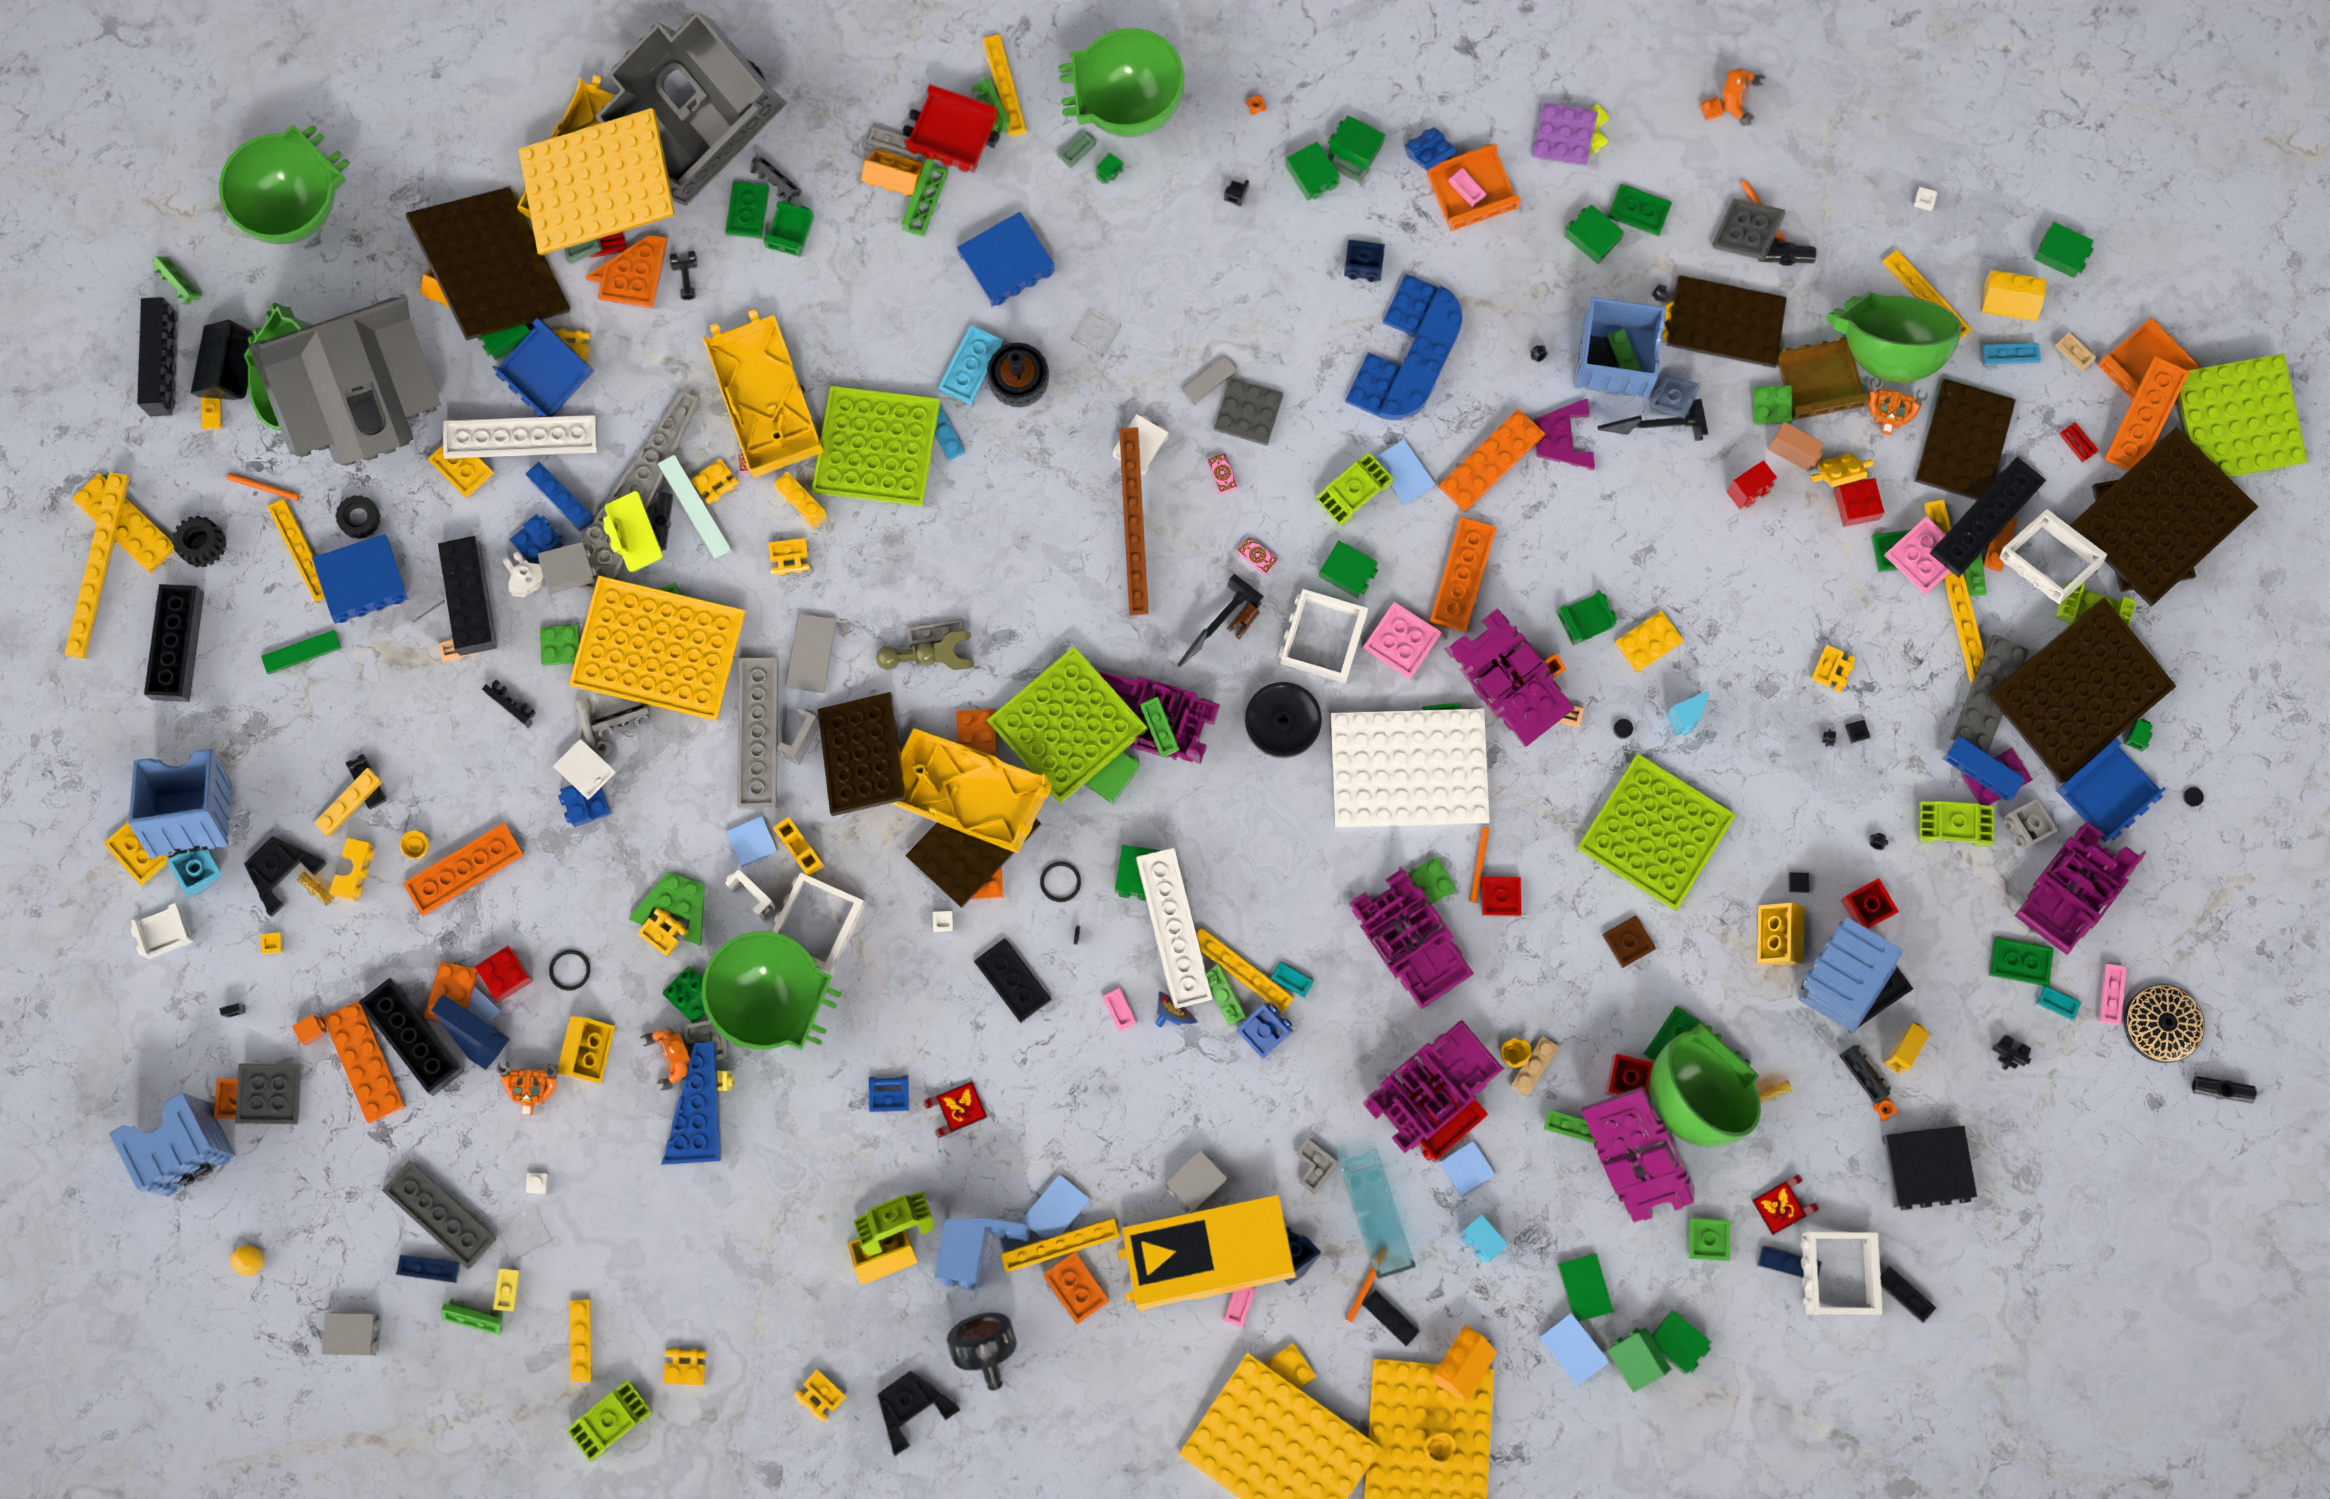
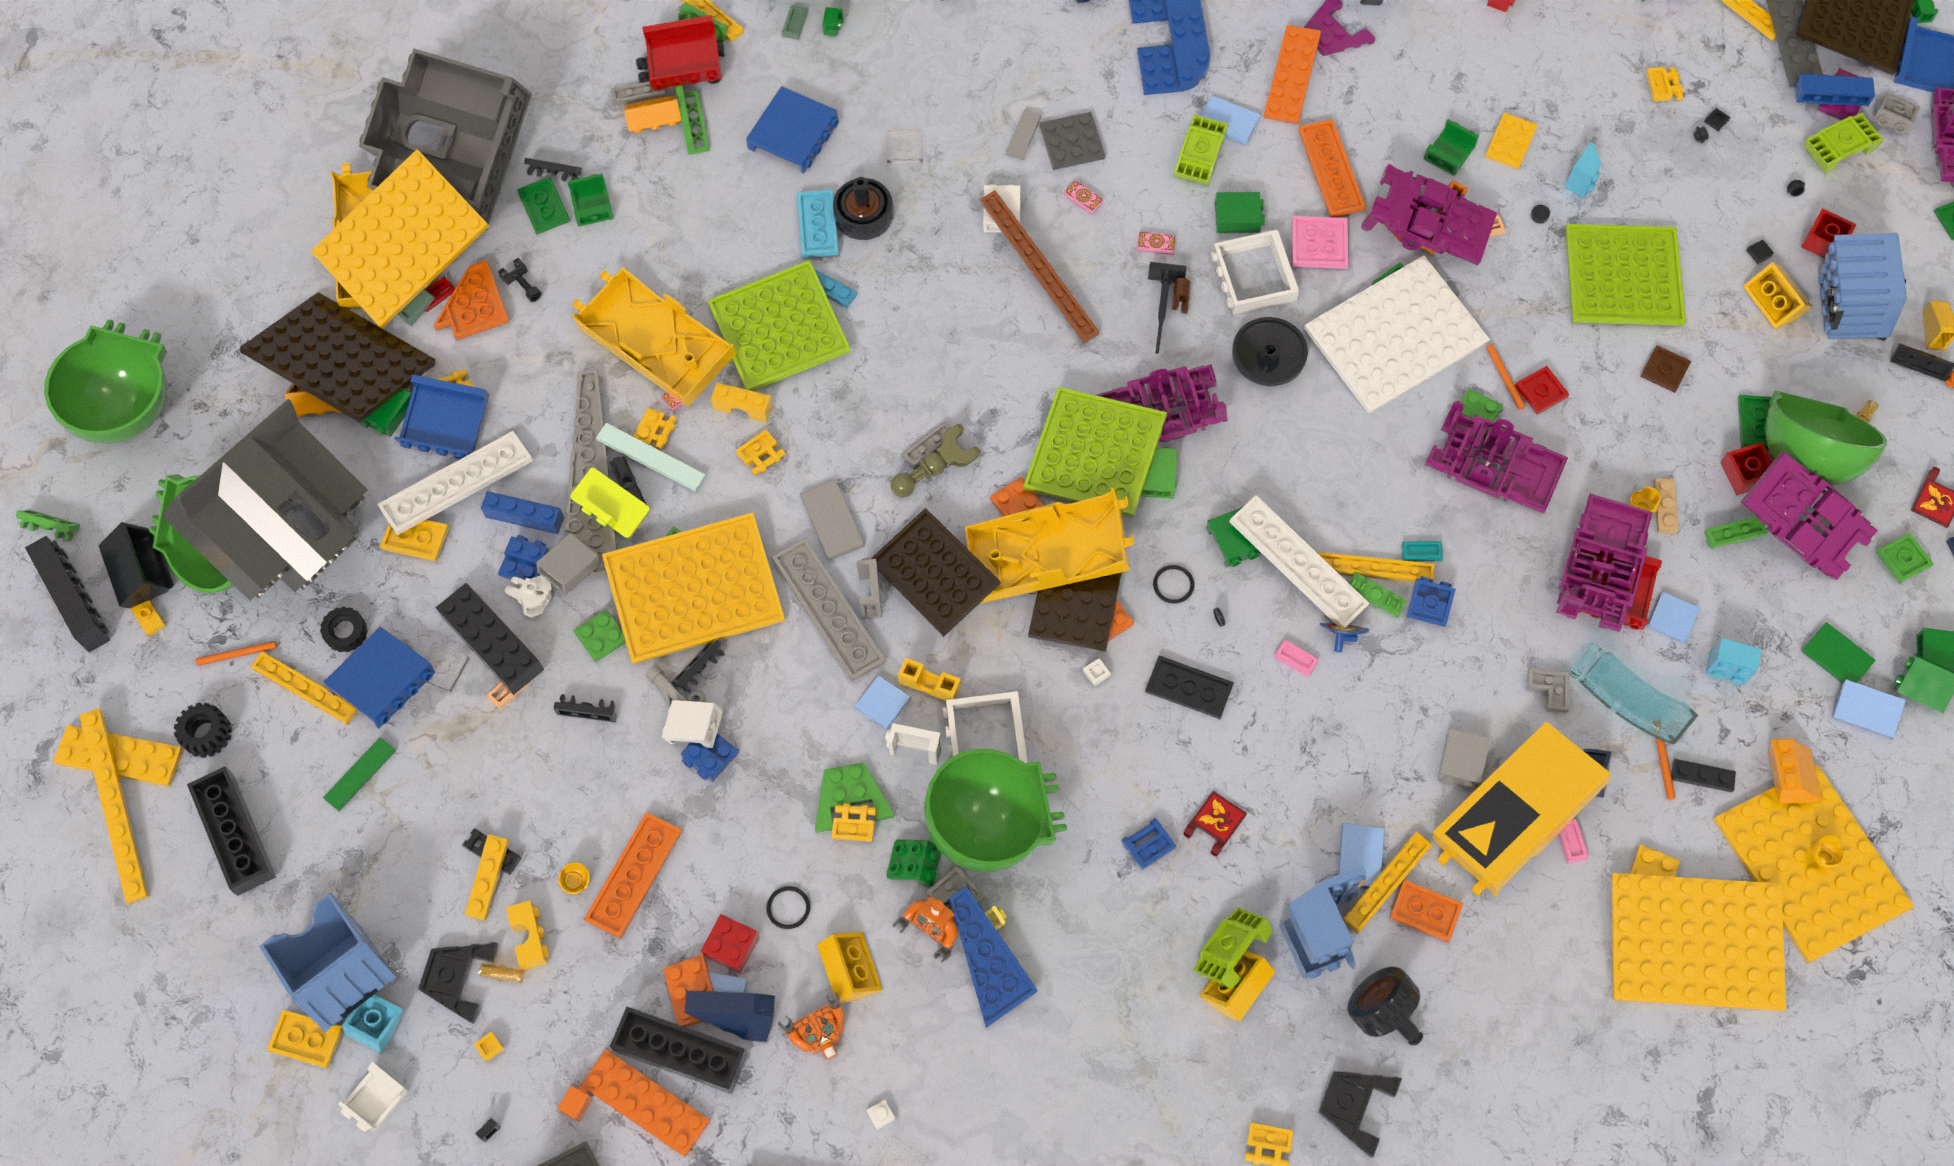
camera: 30 degrees left, 10 degrees down
(1160, 727) = (1178, 404): bright green plate -> none

